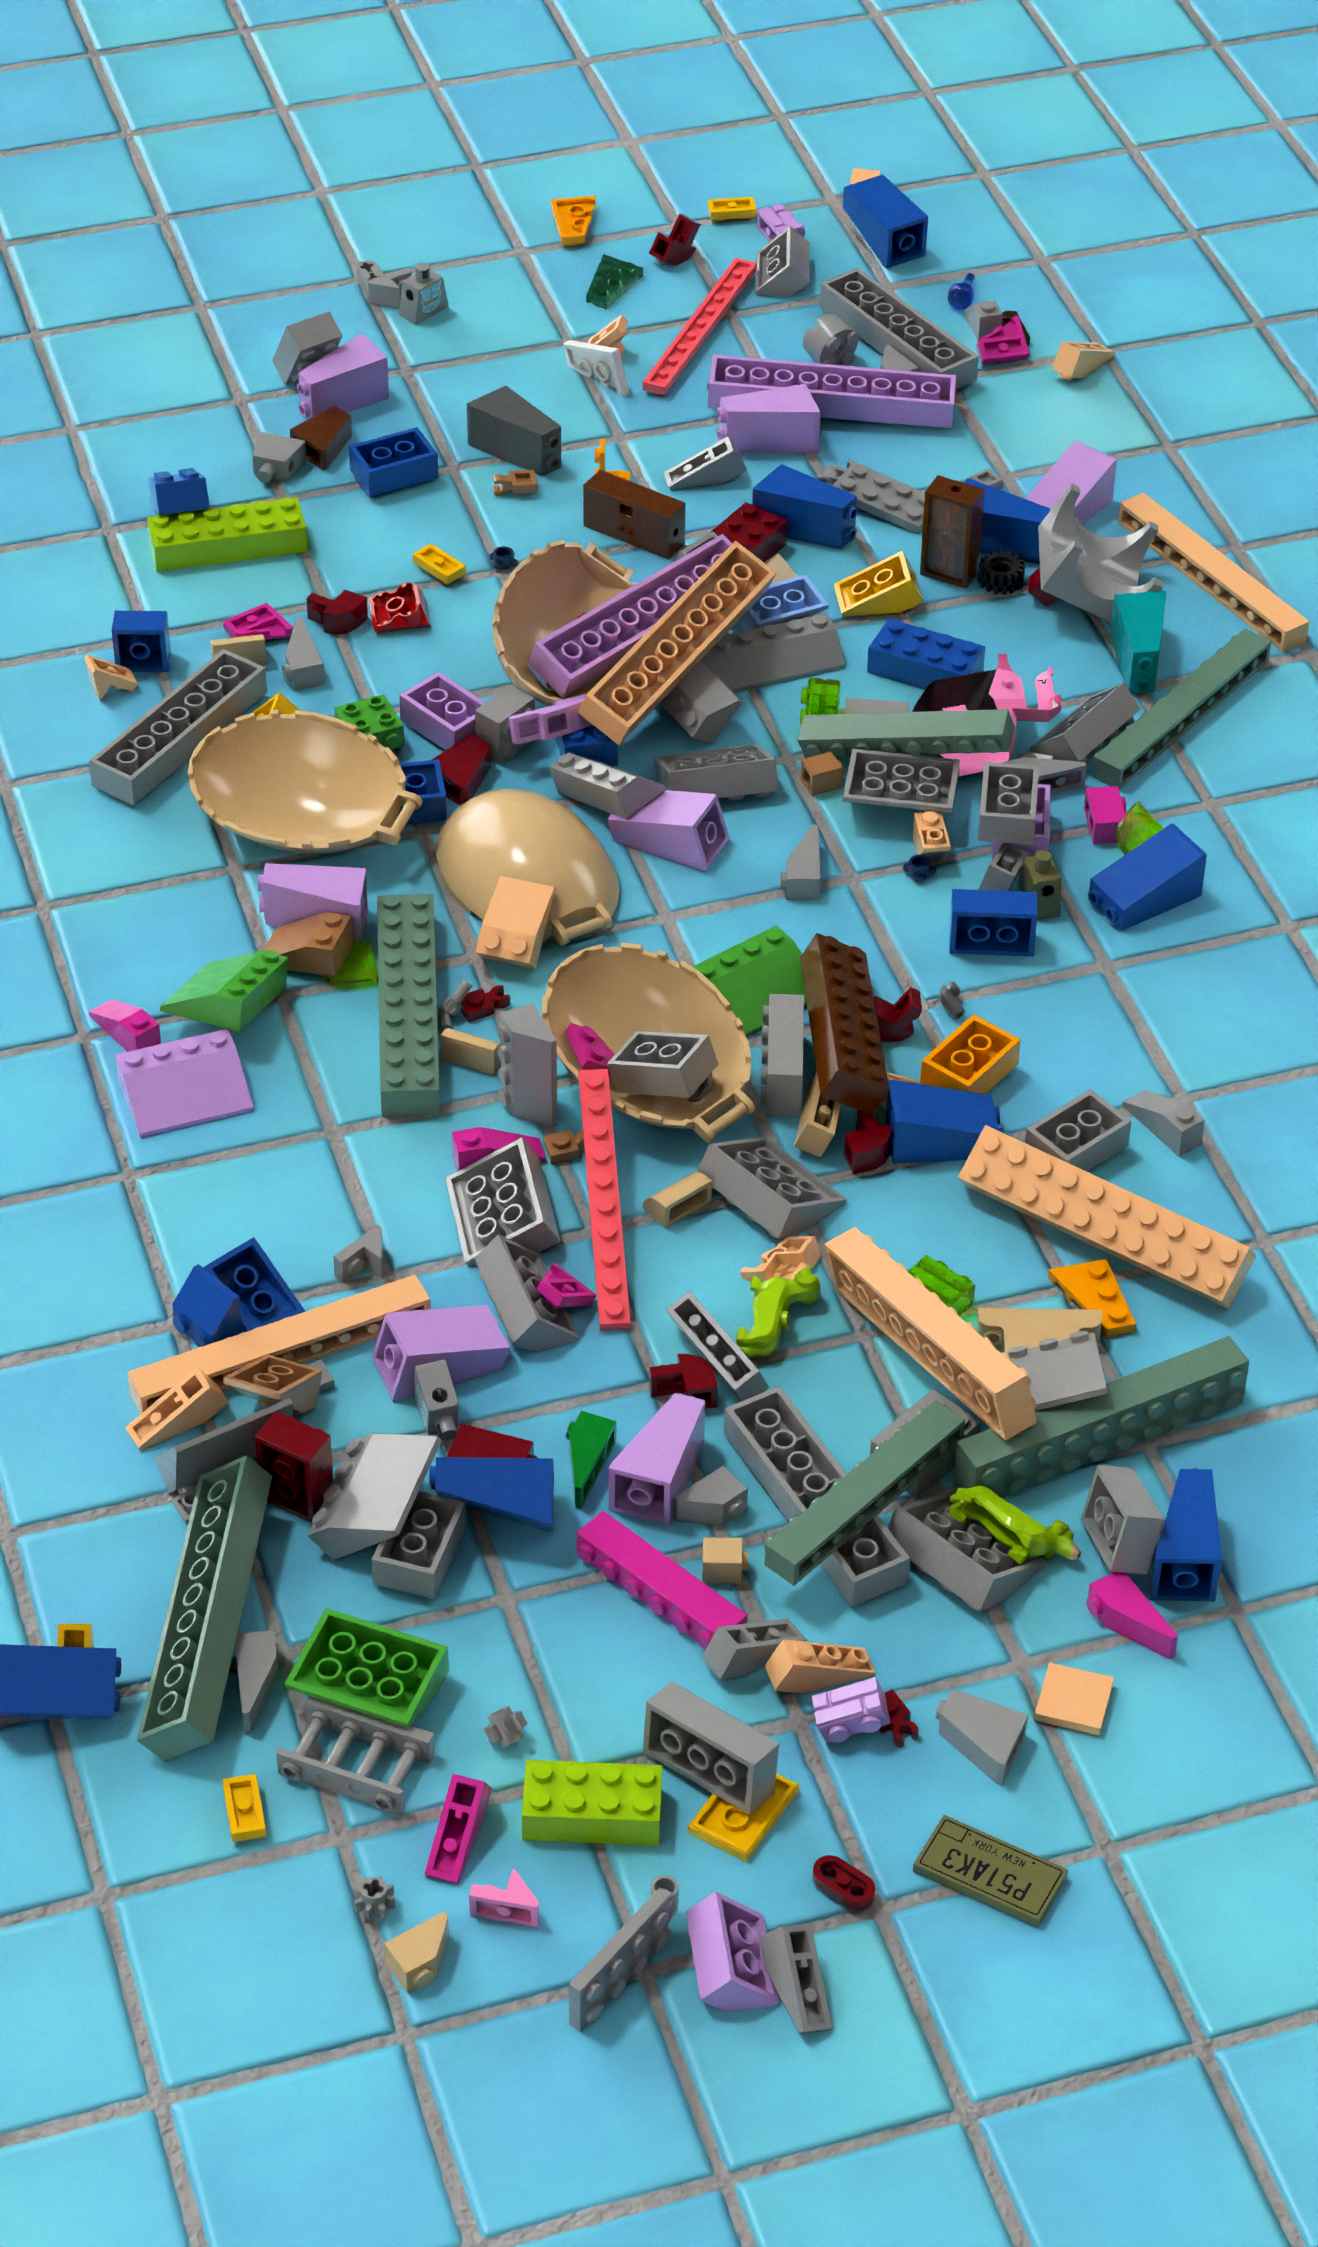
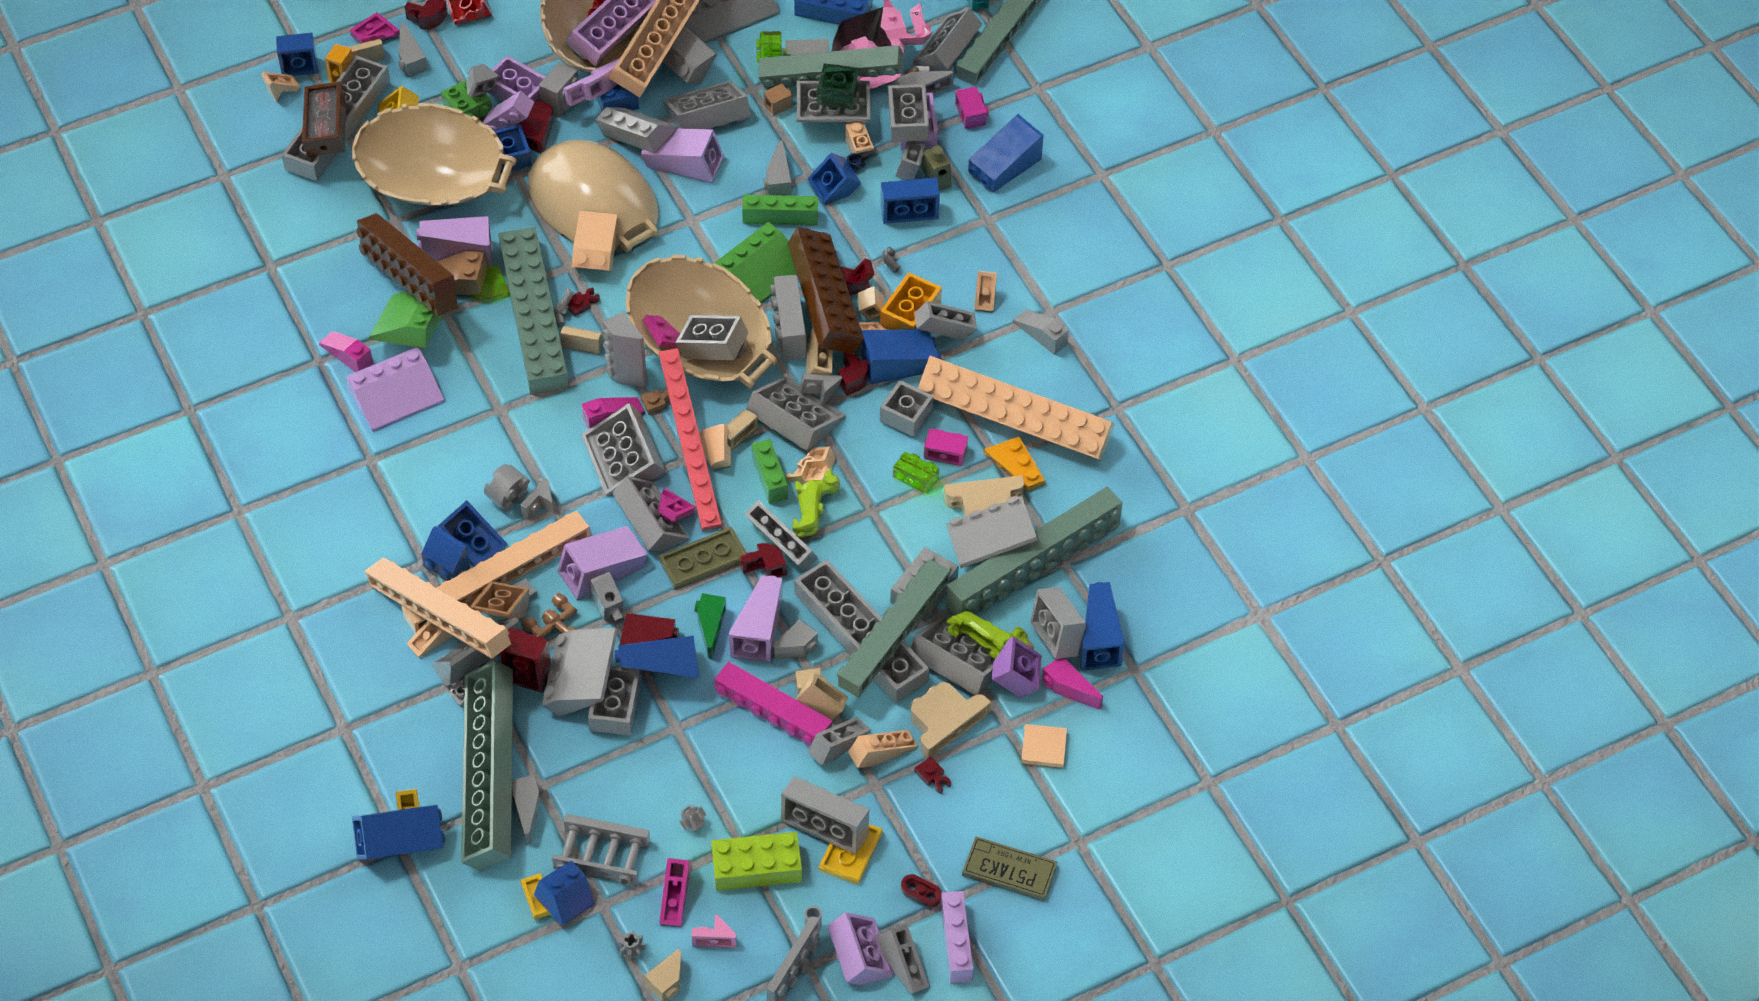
camera: 10 degrees left, 10 degrees up
(158, 719) = (324, 119): none -> brick
(178, 1374) = (438, 607): none -> light nougat brick
(195, 652) = (338, 61): none -> light orange brick
(235, 916) = (407, 264): none -> reddish brown brick
(285, 1805) = (565, 893): none -> blue slope
(318, 1230) = (507, 487): none -> light grey brick
(348, 1418) = (551, 618): none -> medium nougat piece
(369, 1668) = (599, 792): bright green slope -> none
(394, 697) = (480, 80): none -> light grey slope
(429, 739) = (509, 112): none -> lavender brick
(592, 1367) = (702, 558): none -> olive tile
(642, 1216) = (715, 446): none -> light nougat slope
(717, 1259) = (769, 471): none -> bright green brick
(738, 1579) = (822, 697): none -> tan brick
(798, 914) = (780, 209): none -> bright green brick
(820, 1152) = (823, 385): none -> light grey slope
(851, 1710) = (907, 776): lavender brick -> none
(885, 884) = (834, 179): none -> blue slope
(888, 1958) = (956, 937): none -> lavender brick
(909, 1050) = (870, 302): none -> tan brick
(911, 757) = (838, 86): none -> clear green brick
(926, 1634) = (945, 716): none -> tan brick
(932, 1333) = (918, 510): light nougat brick -> none
(939, 1198) = (906, 408): none -> light grey brick
(982, 1732) = (991, 777): light grey slope -> none
(991, 1259) = (945, 447): none -> dark pink brick
(1018, 1084) = (945, 320): none -> light grey brick
(1049, 1577) = (1017, 668): none -> medium lavender slope
(1081, 1132) = (989, 349): light grey brick -> none
(1087, 1055) = (985, 290): none -> light nougat slope
(1136, 828) = (994, 118): clear neon green tile -> none

